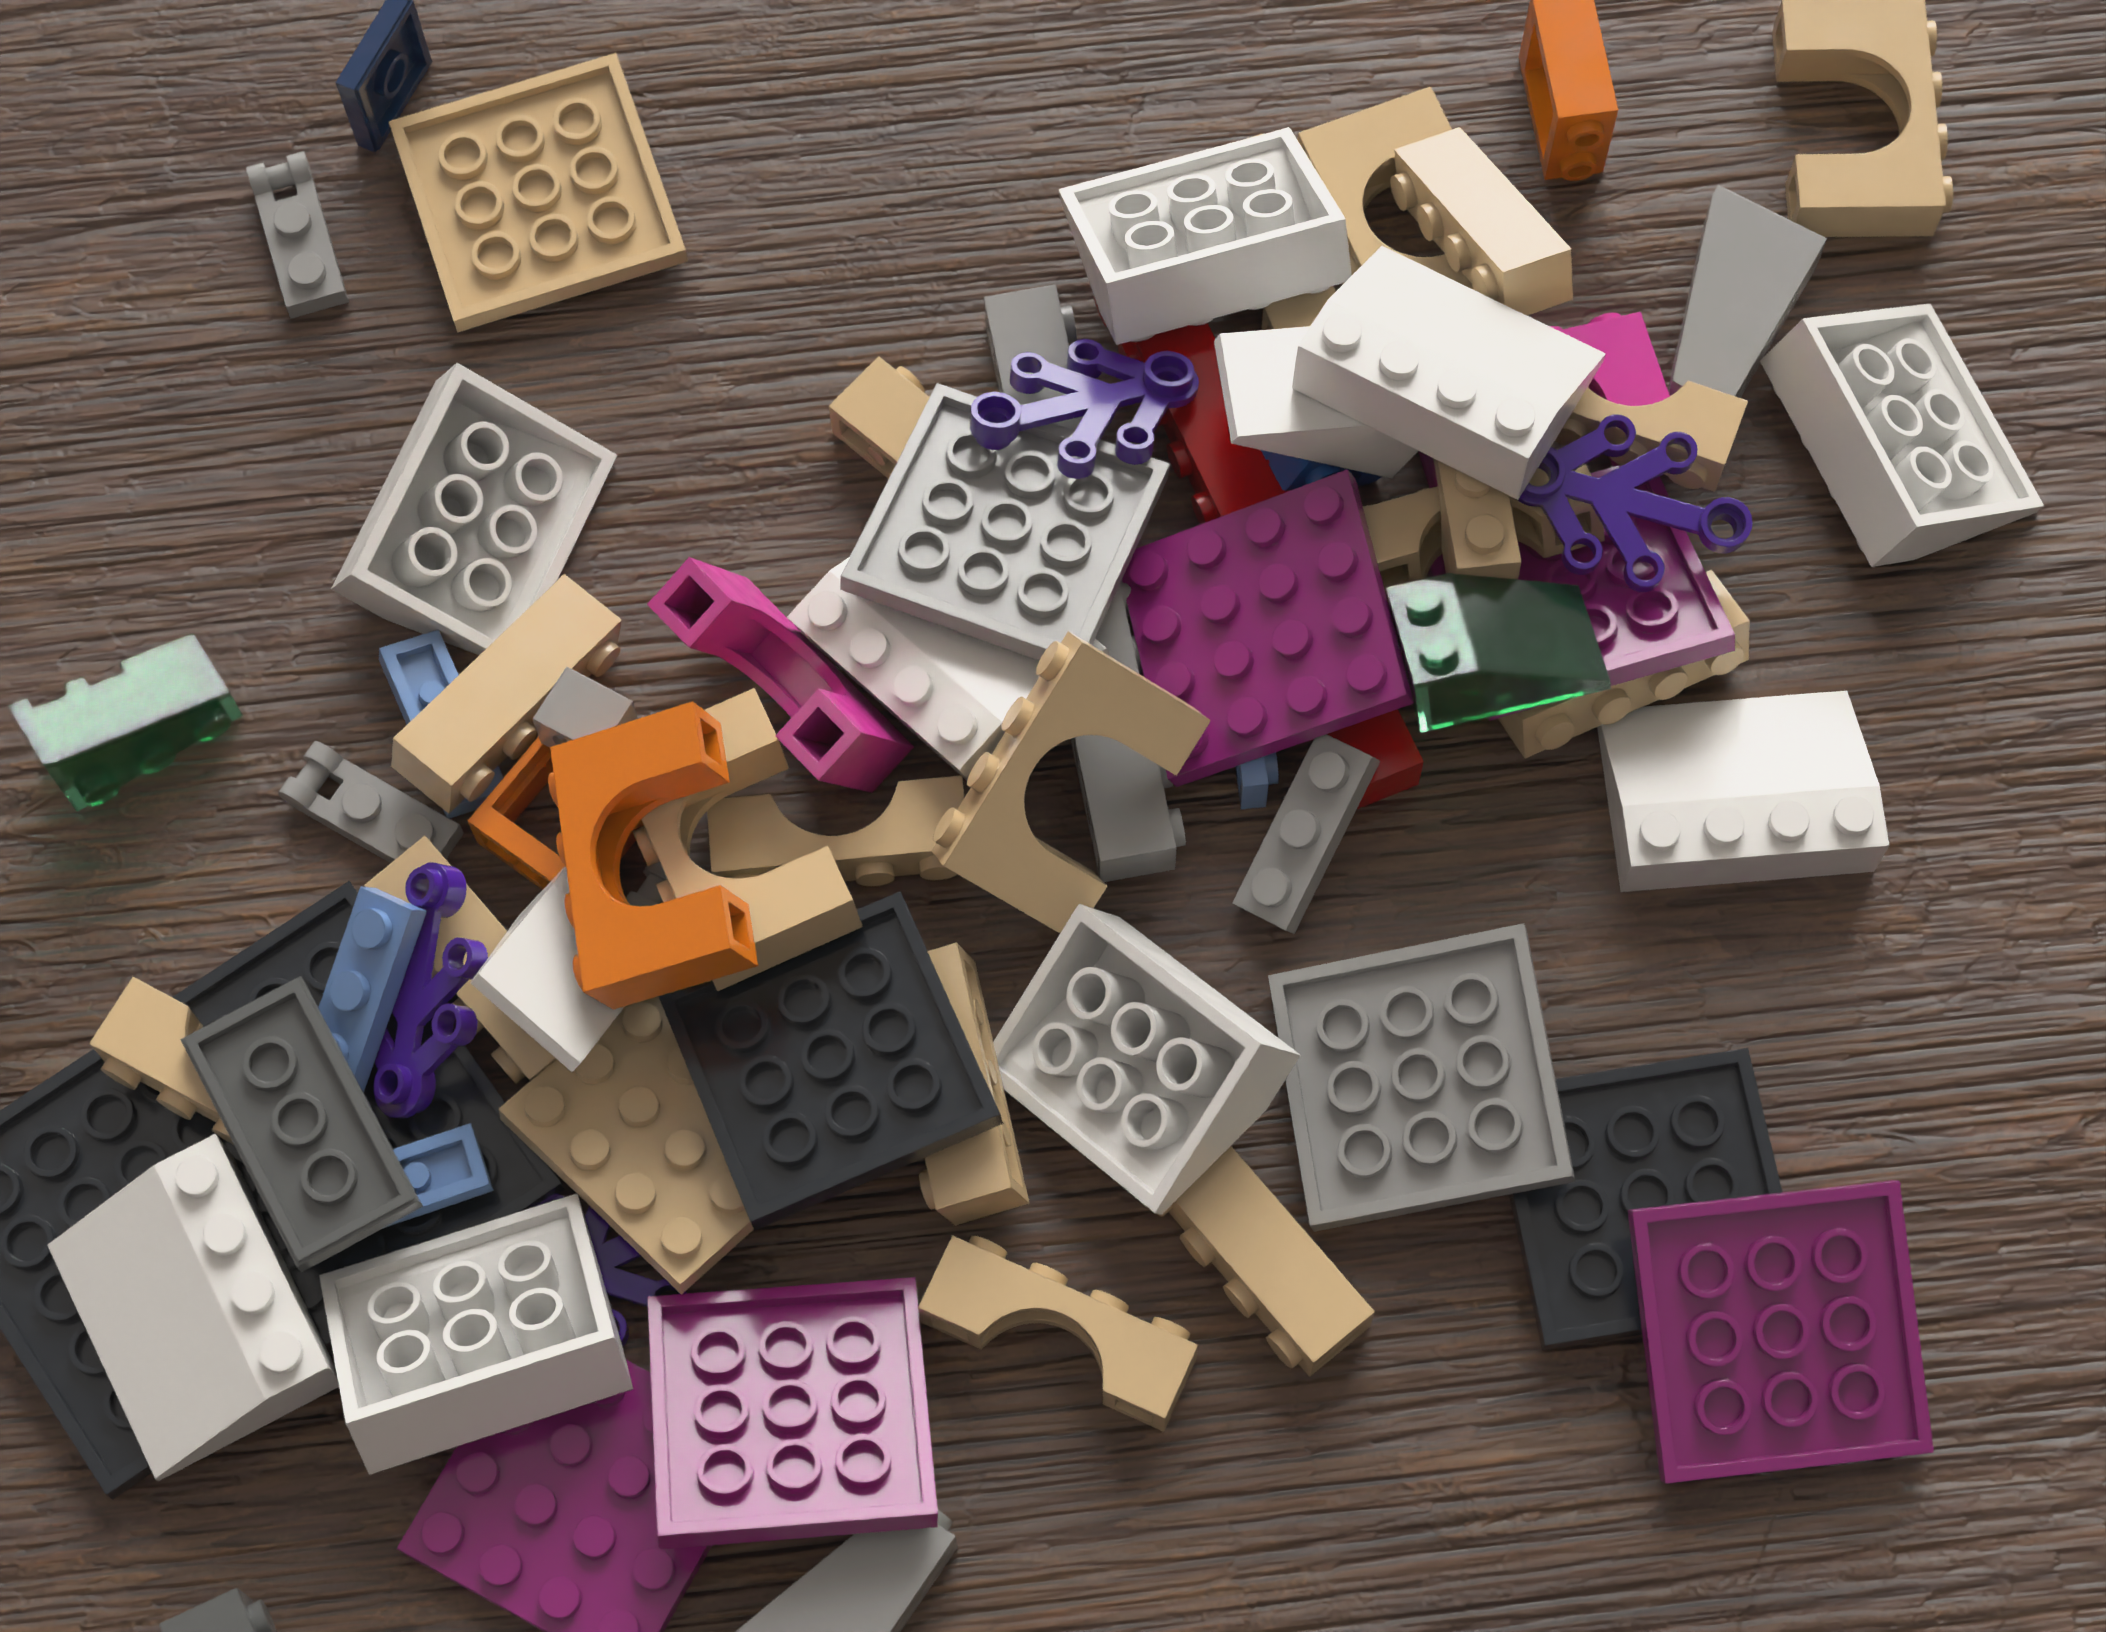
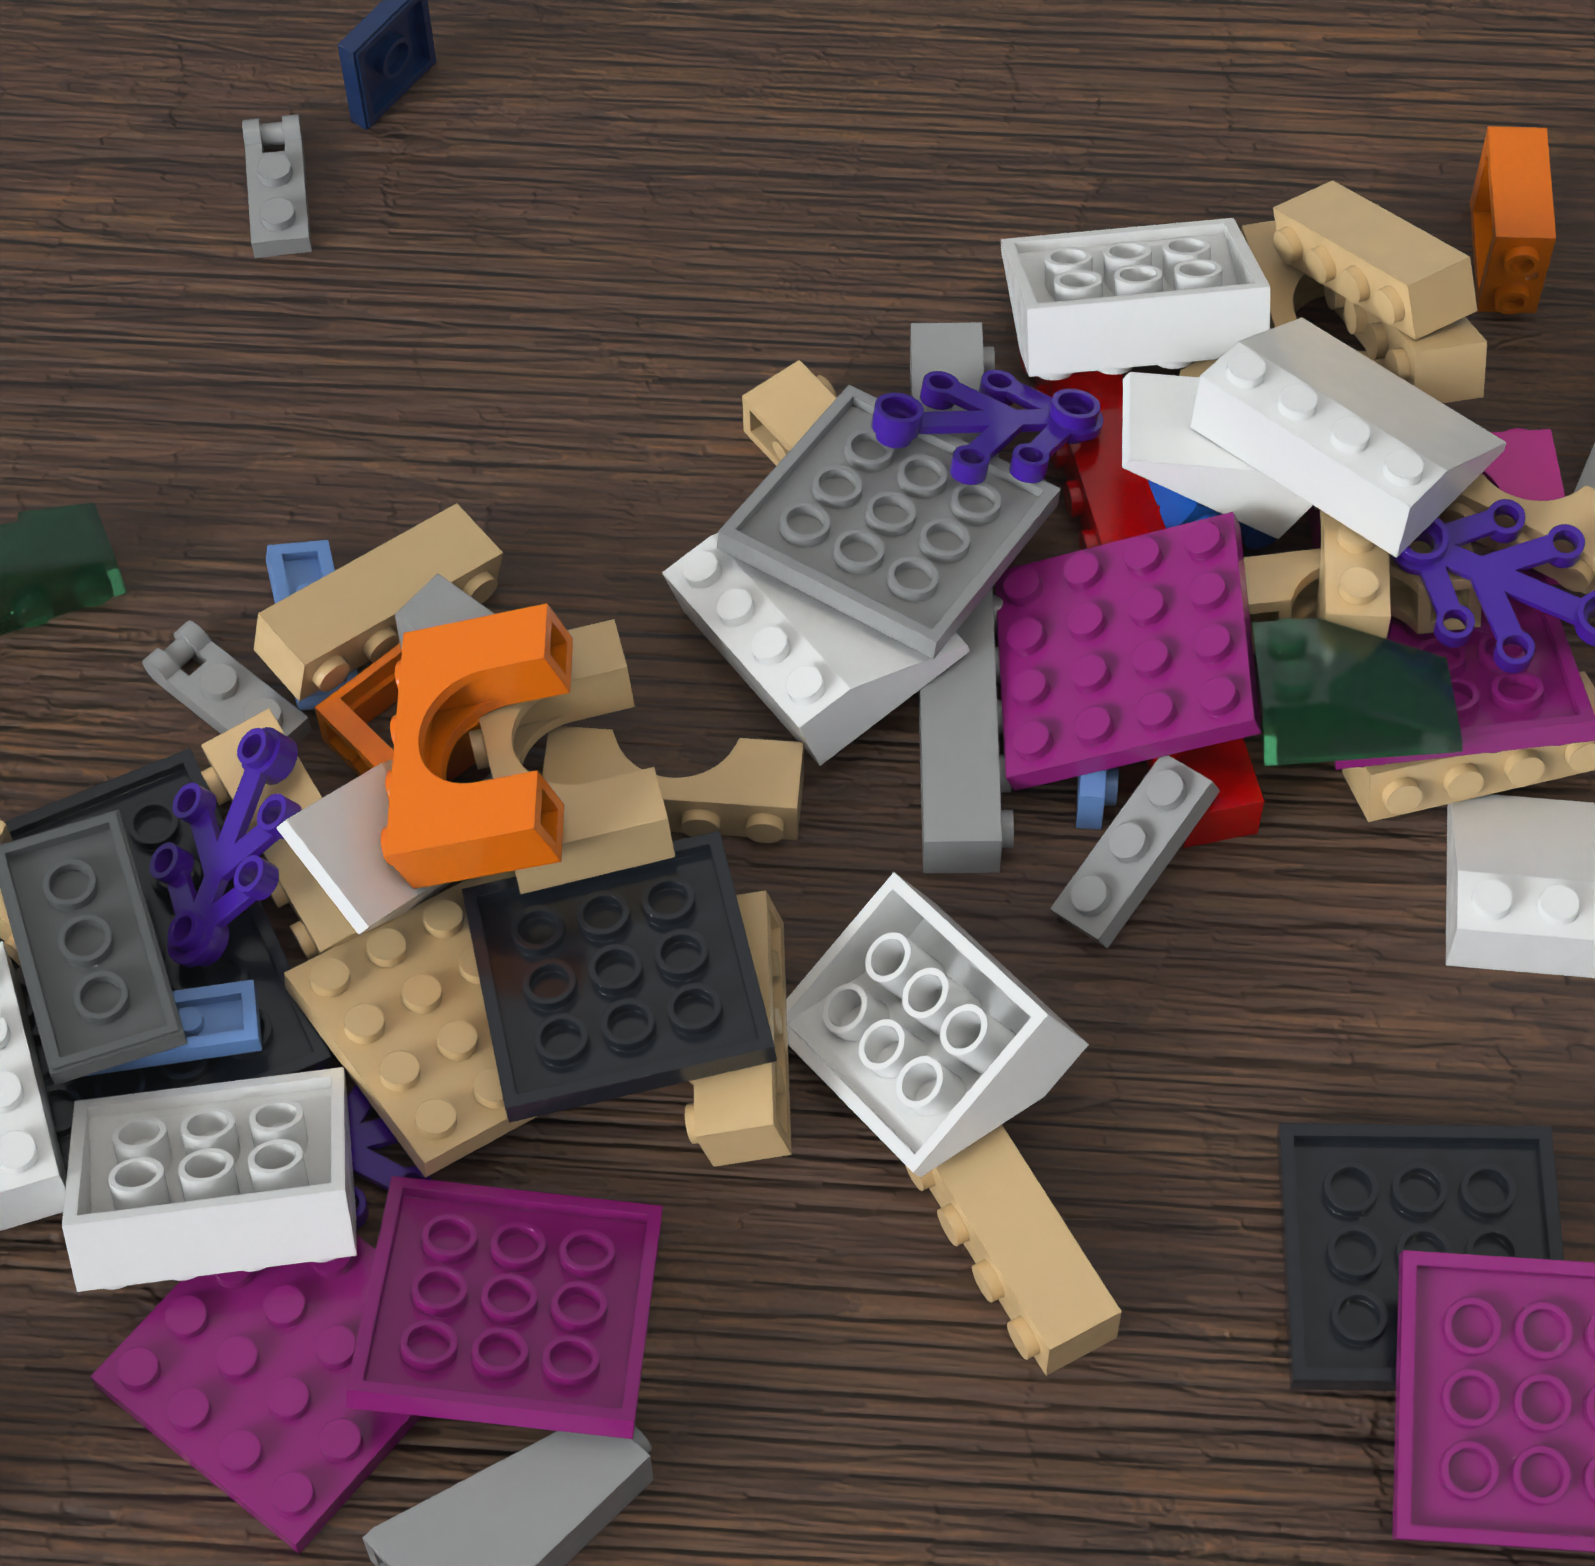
camera: 10 degrees right, 10 degrees down
(369, 975) = (185, 825): medium blue plate -> none
(473, 514) = (384, 441): white slope -> none
(537, 192) = (508, 181): tan plate -> none
(831, 721) = (672, 653): dark pink arch -> none
(984, 1294) = (728, 1234): tan arch -> none
(1075, 696) = (929, 667): tan arch -> none
(1421, 1078) = (1209, 1100): light grey plate -> none
(1443, 167) = (1375, 259): none -> tan brick

